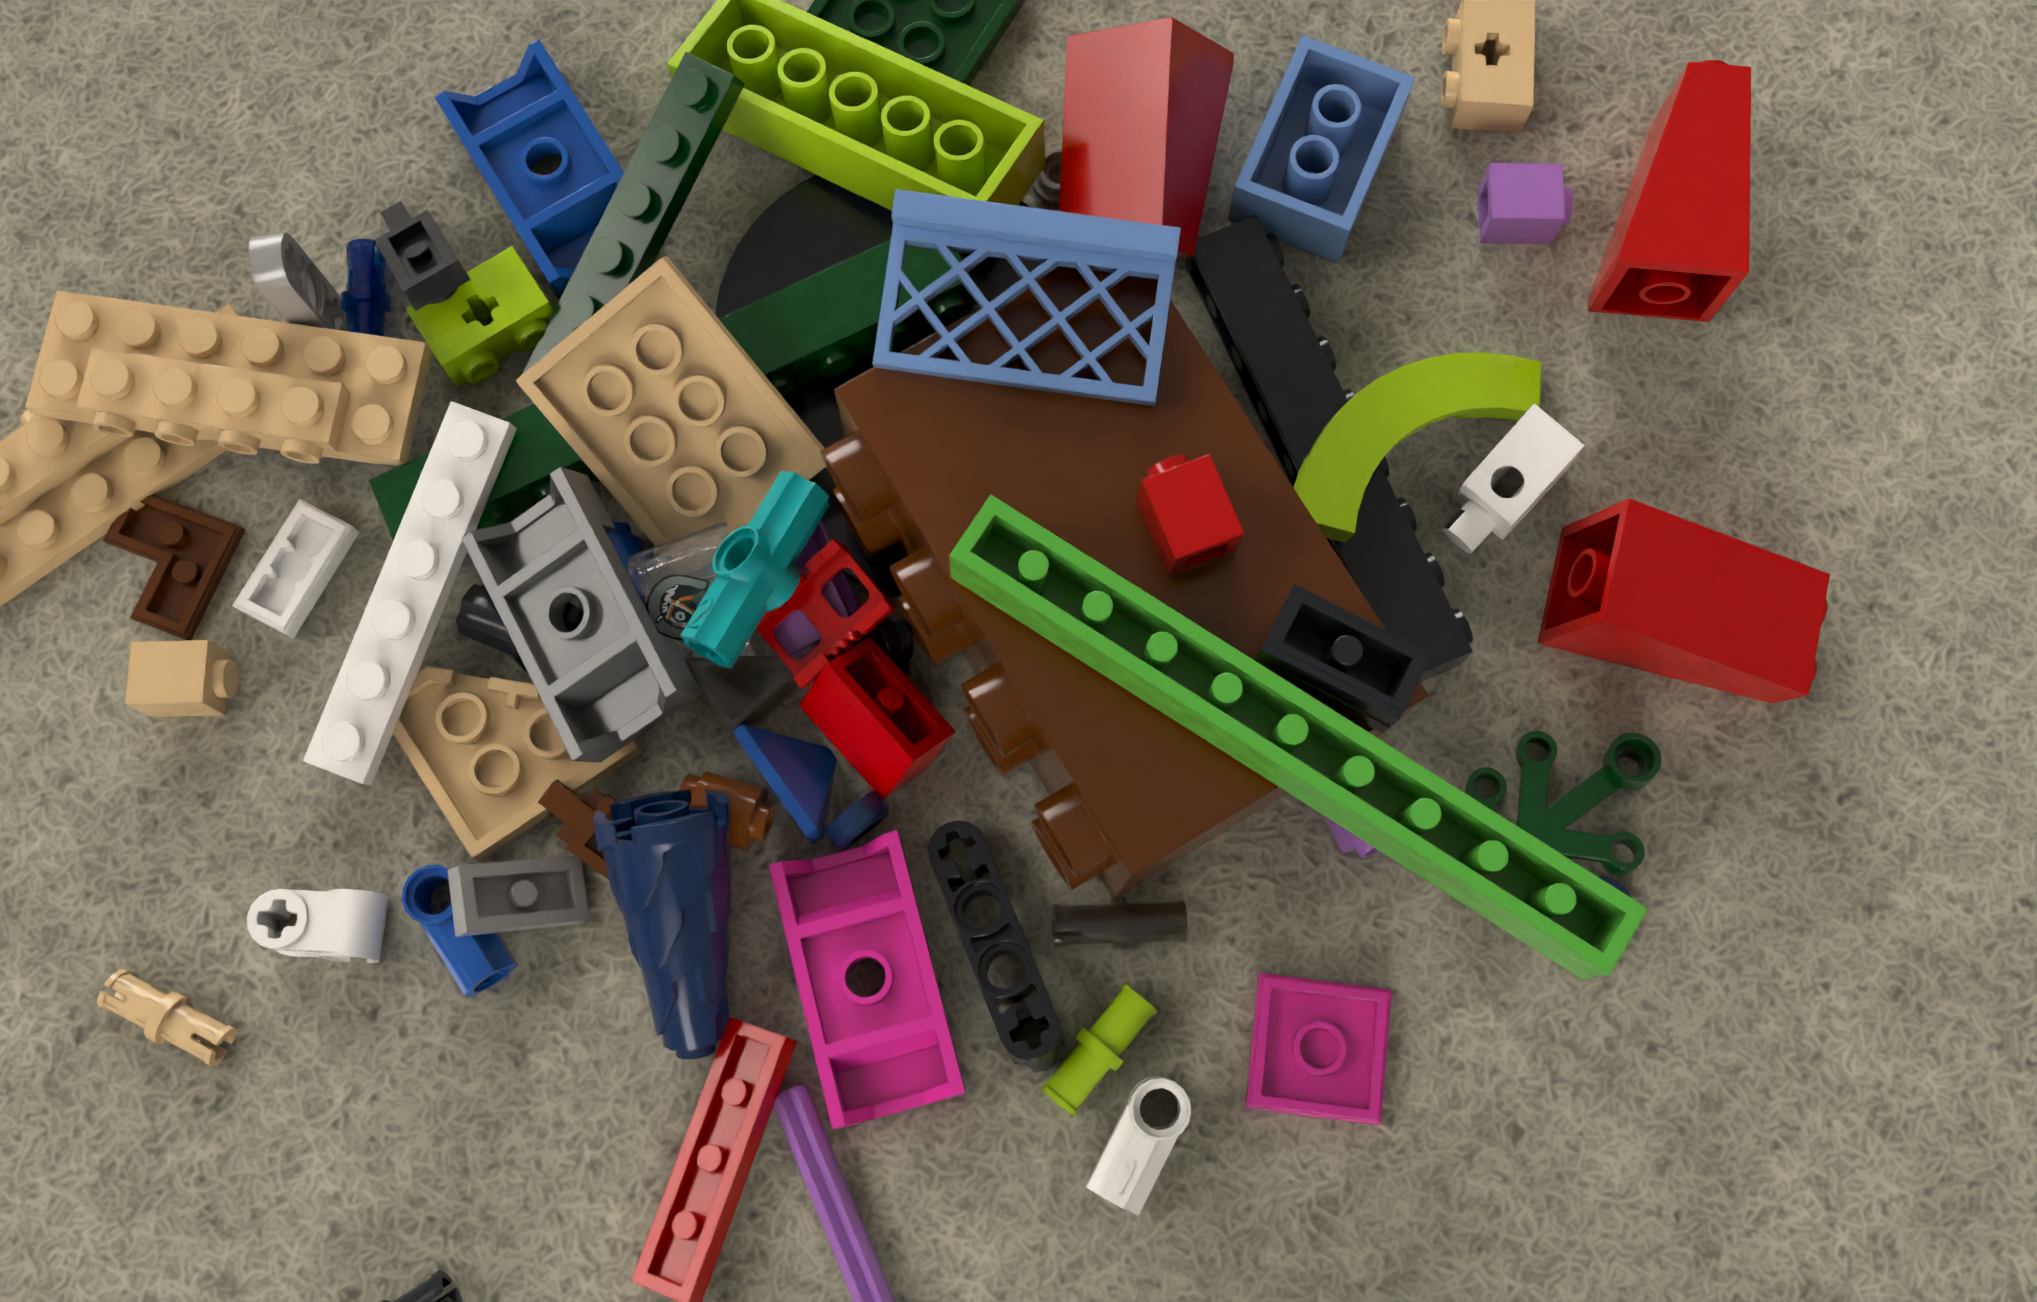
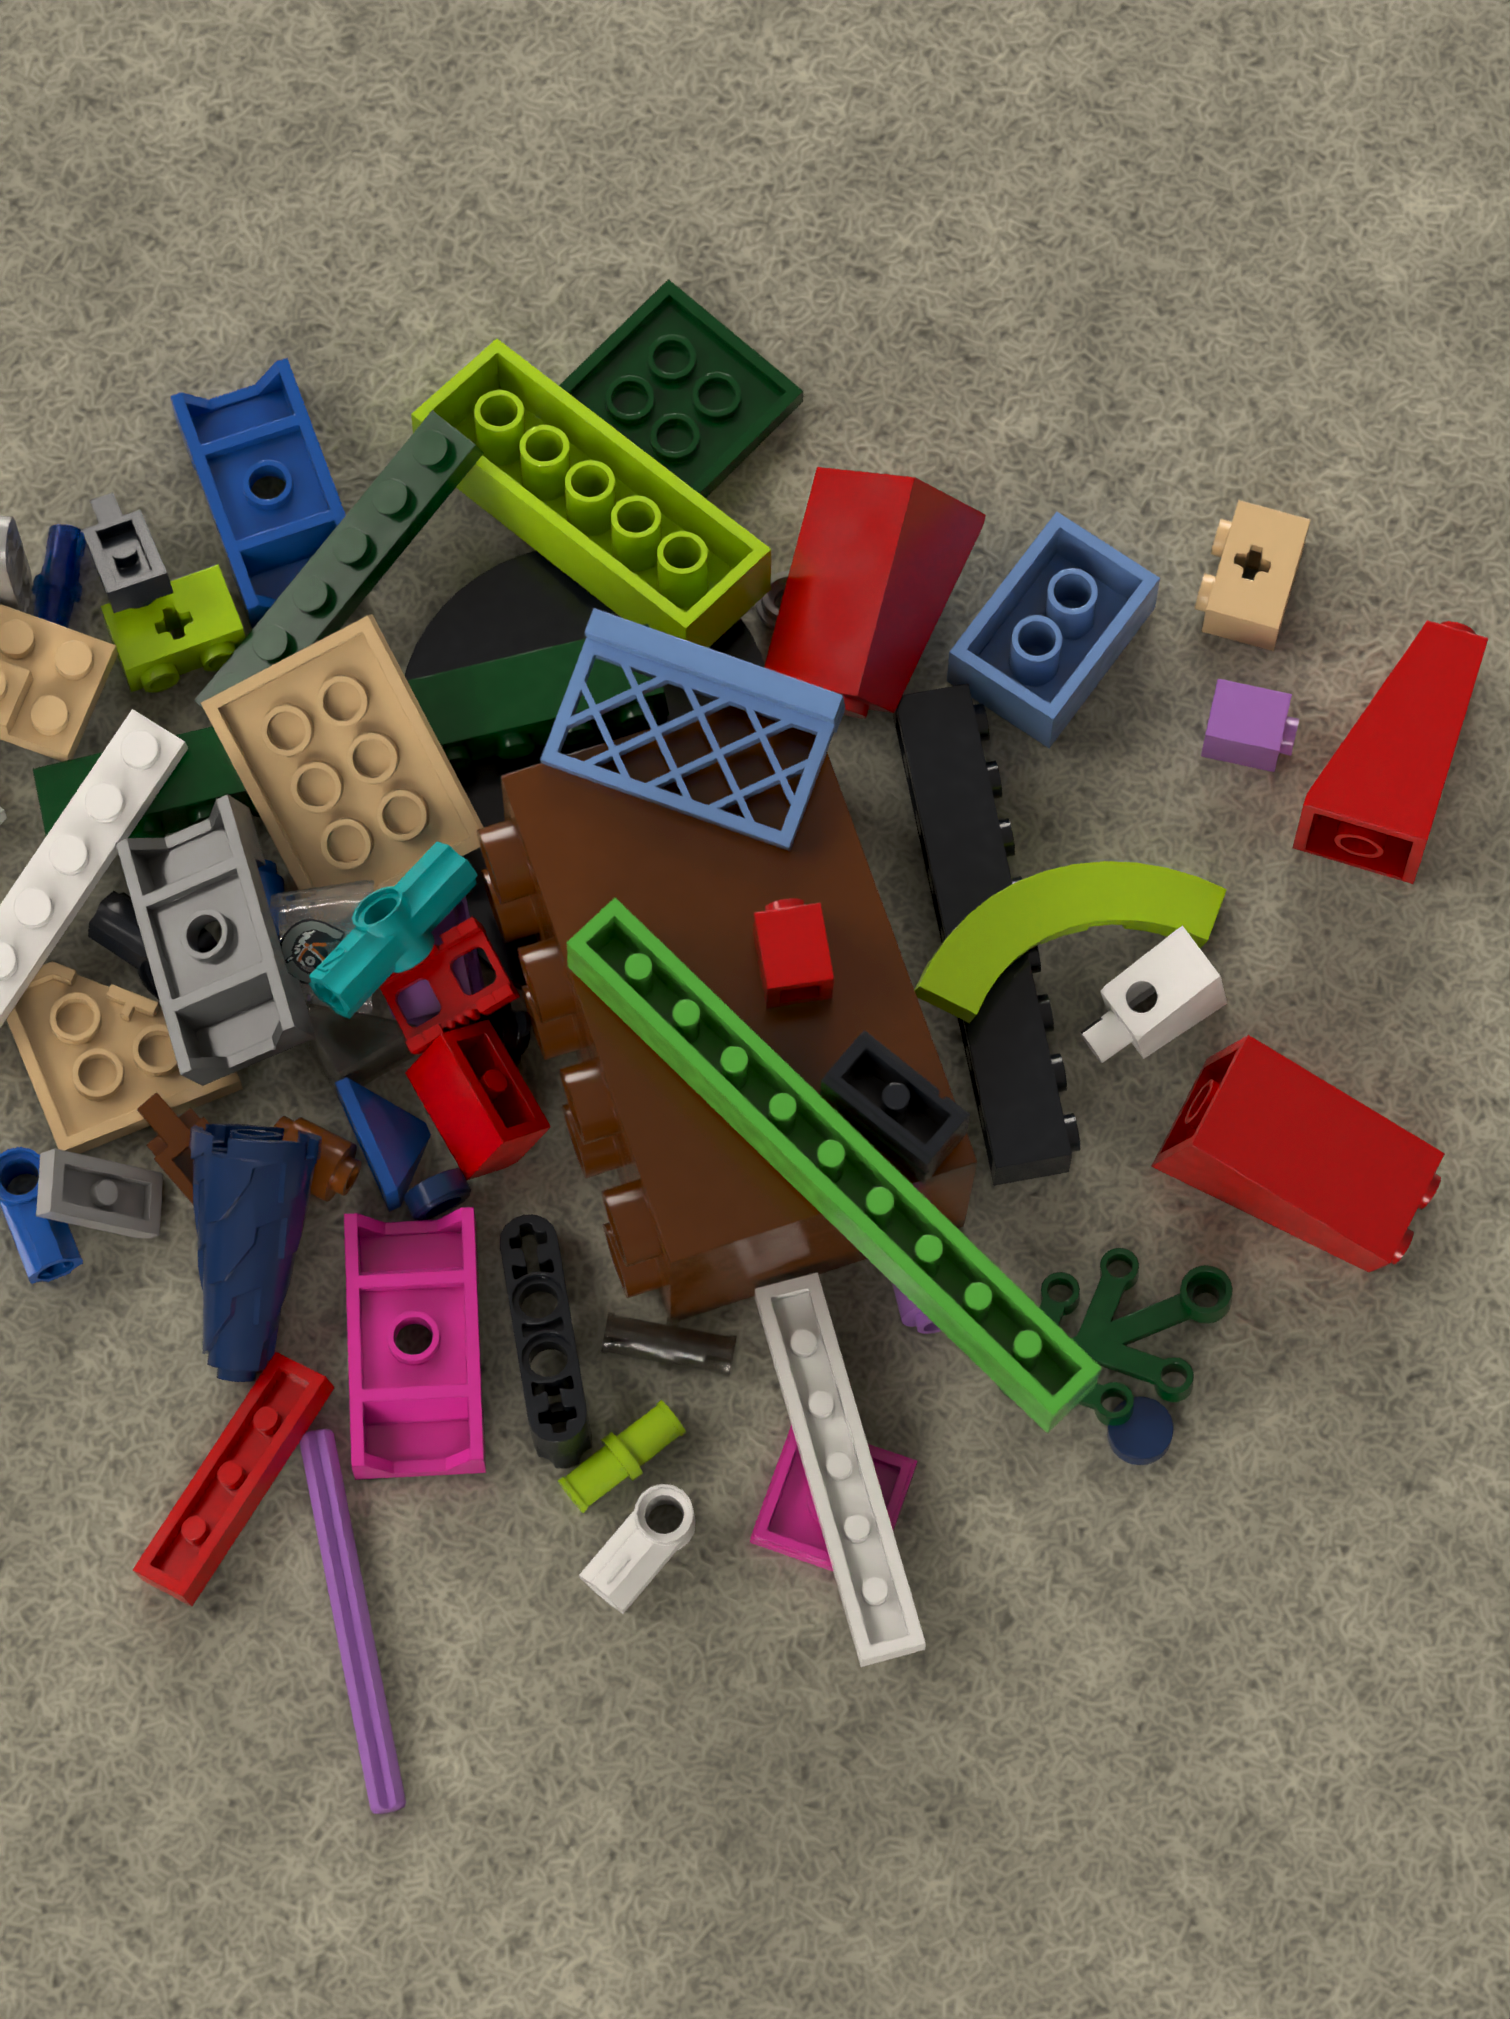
camera: 10 degrees right, 5 degrees down
(1325, 1025) = (839, 1470): none -> white plate

